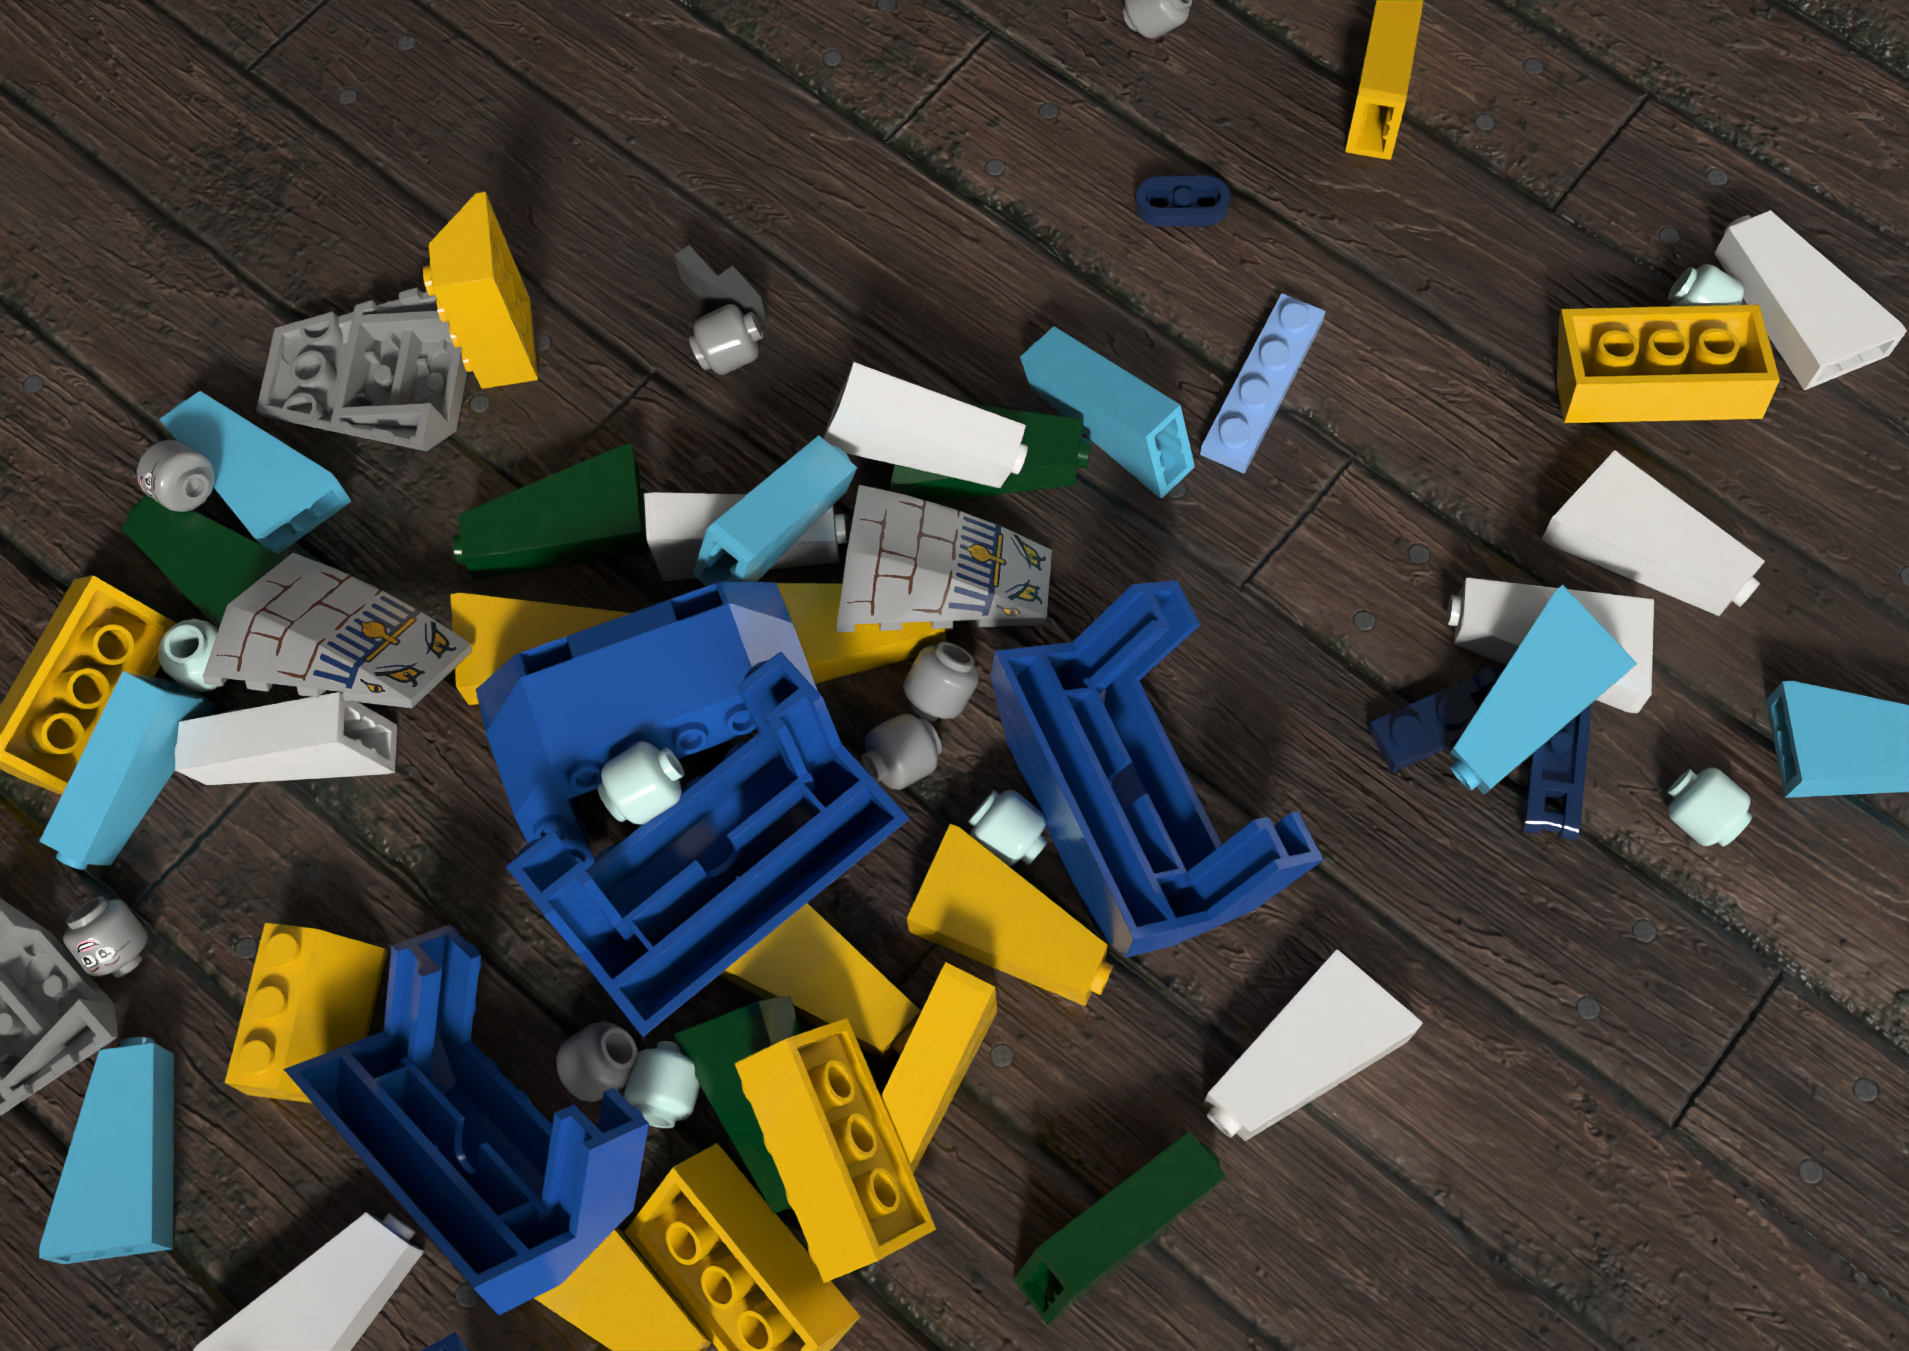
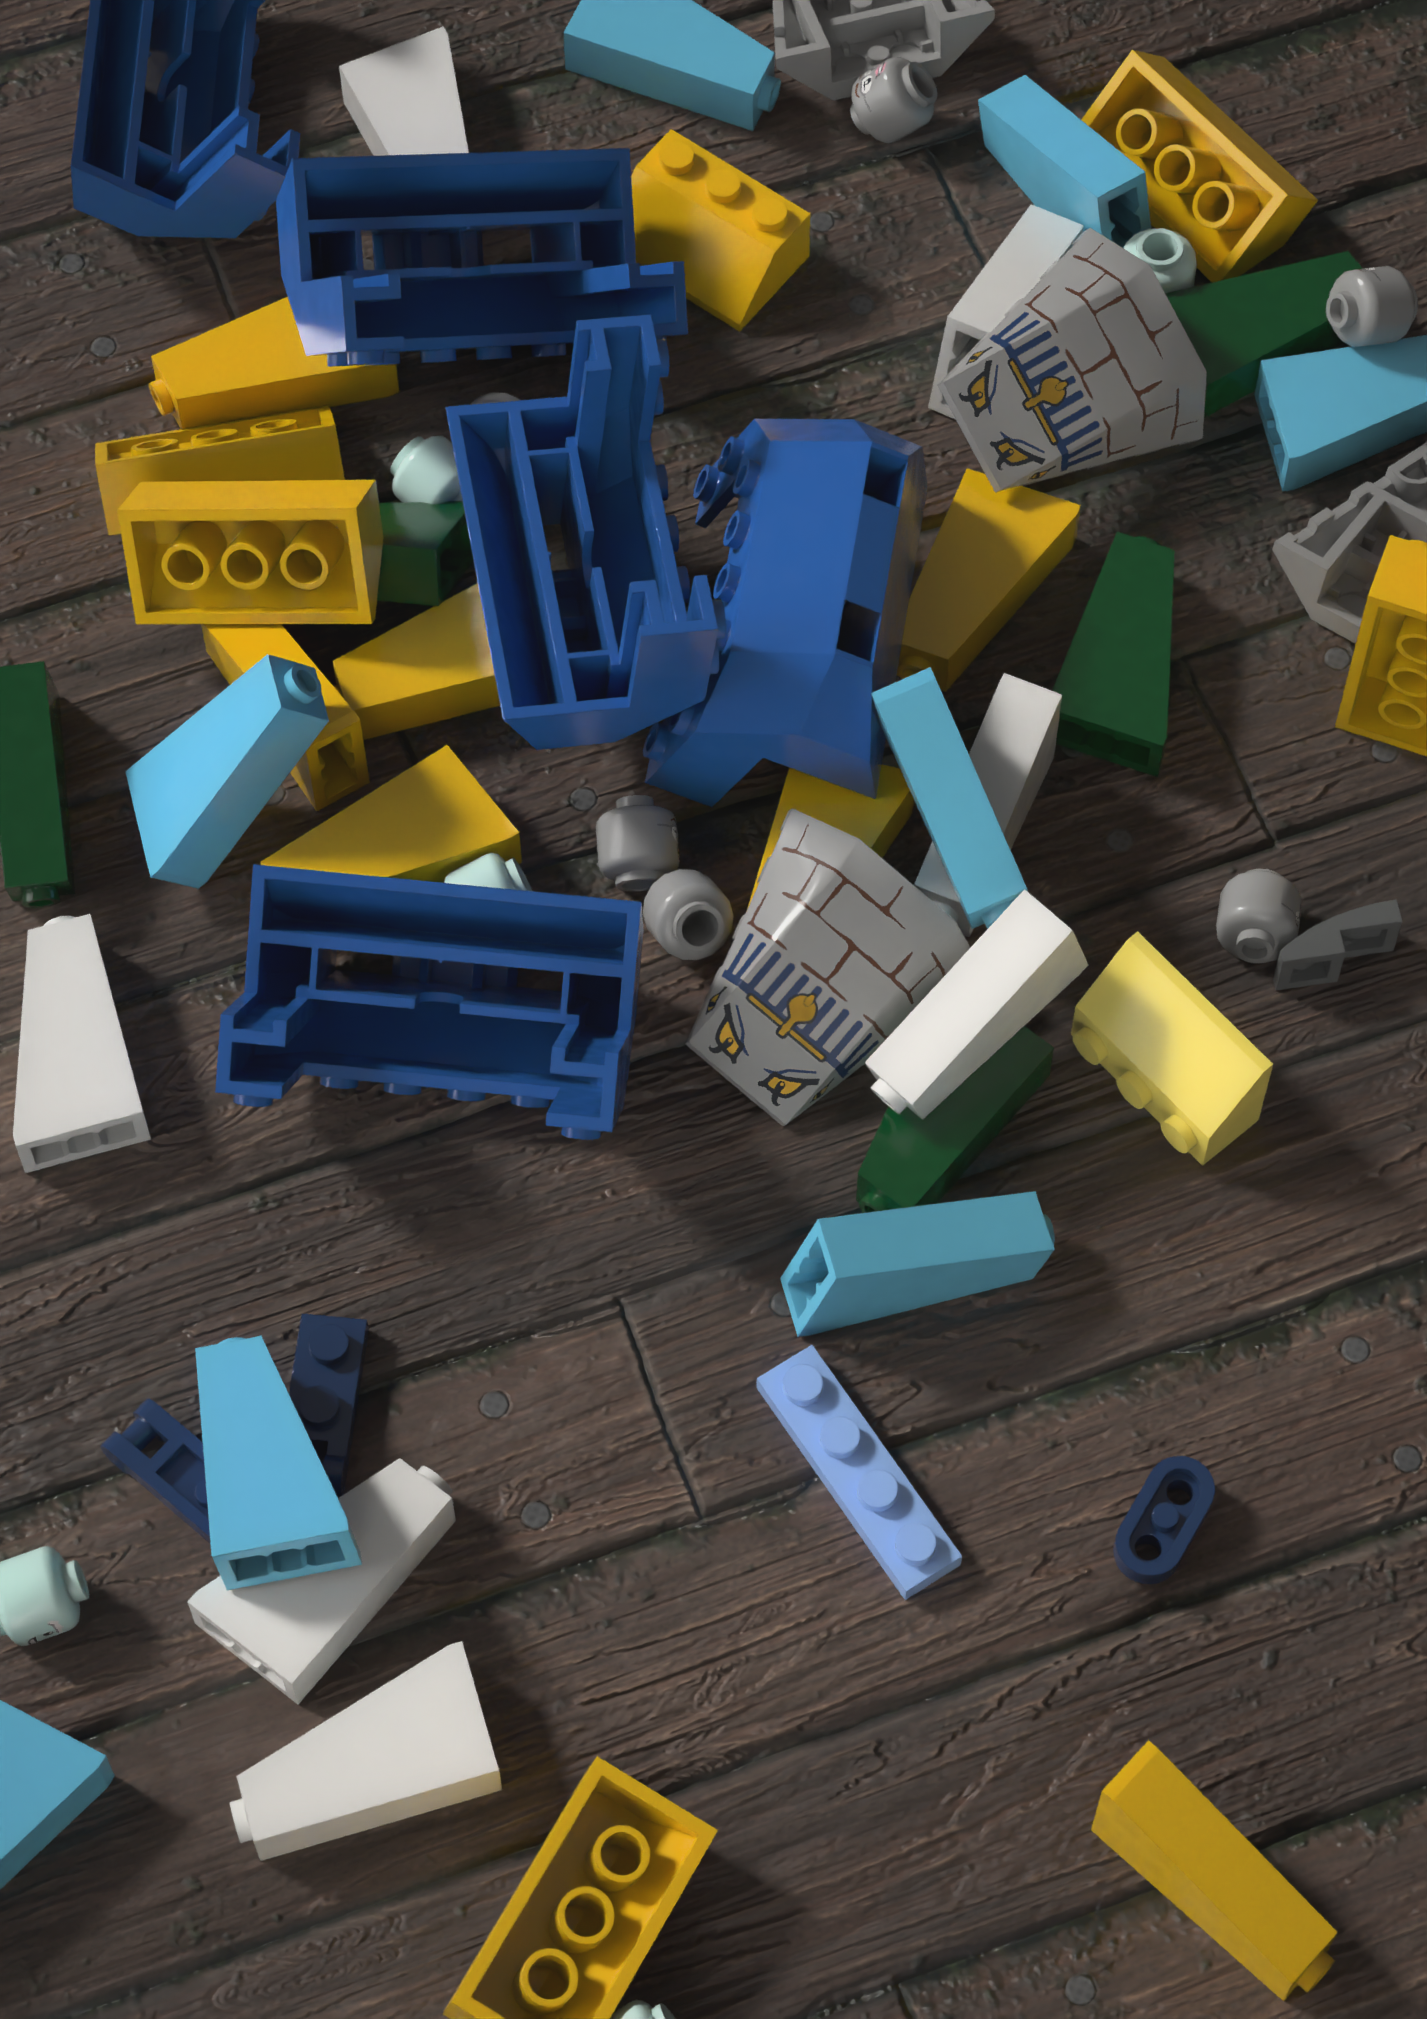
camera: 115 degrees right, 5 degrees down
(641, 783) = (698, 508): light aqua head -> none
(867, 320) = (1171, 1051): none -> light yellow slope
(1040, 1064) = (223, 767): none -> medium azure slope

